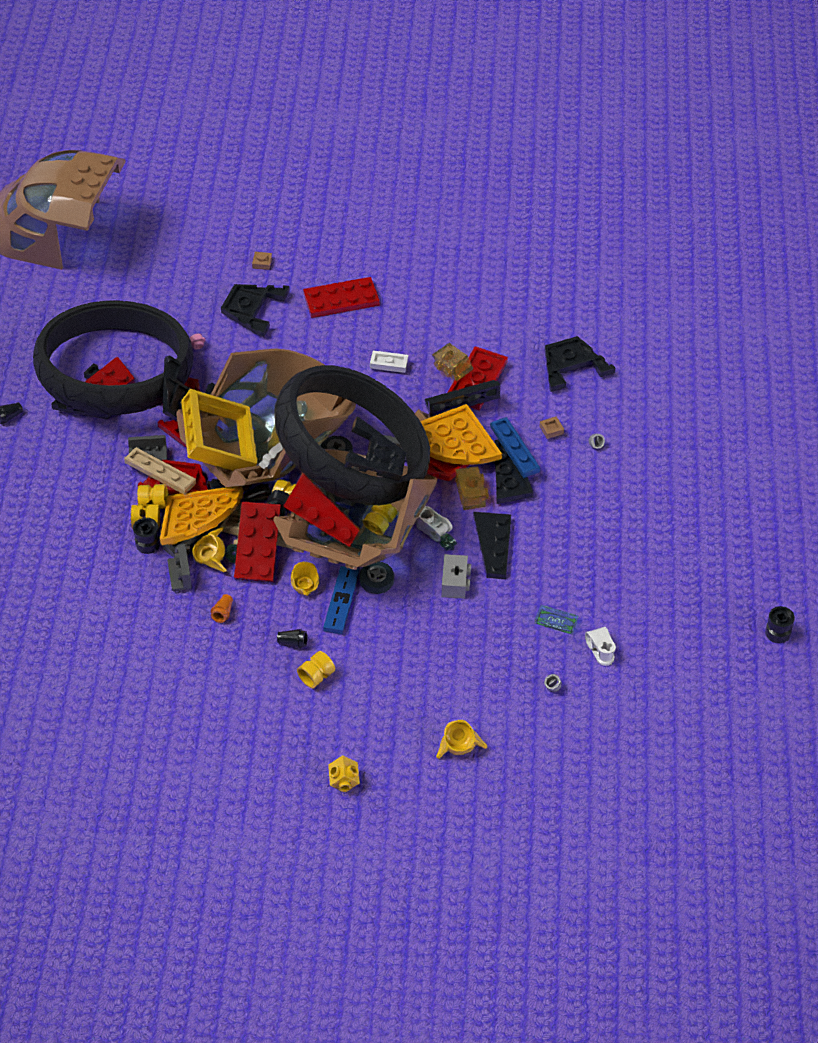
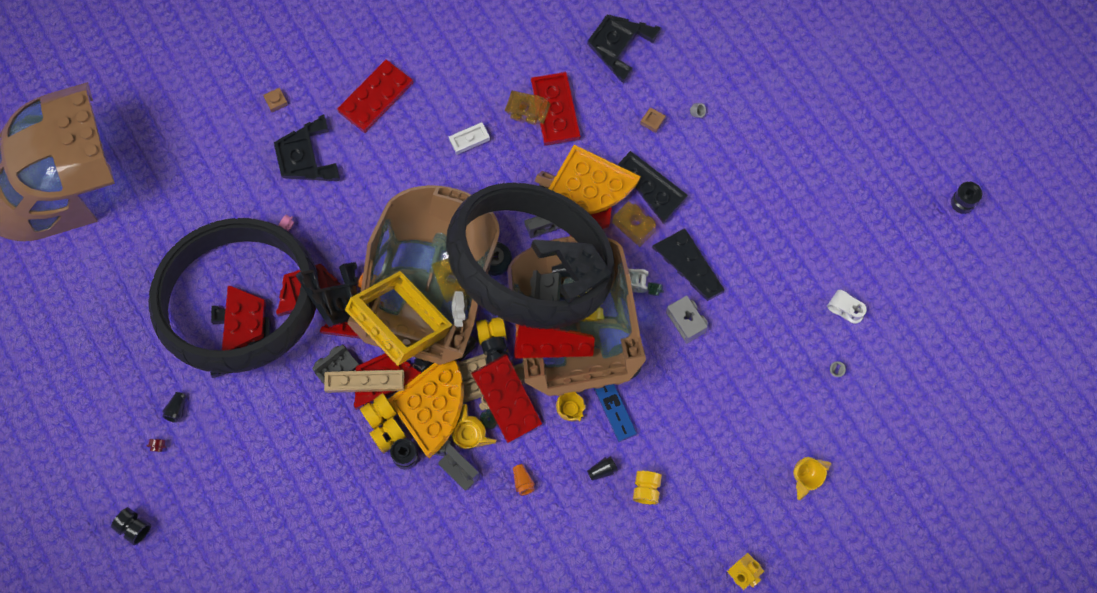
camera: 35 degrees left, 20 degrees up
(470, 395) = (563, 138): black fence -> none
(515, 447) = (641, 160): blue tile -> none
(556, 619) = (792, 305): clear light blue tile -> none

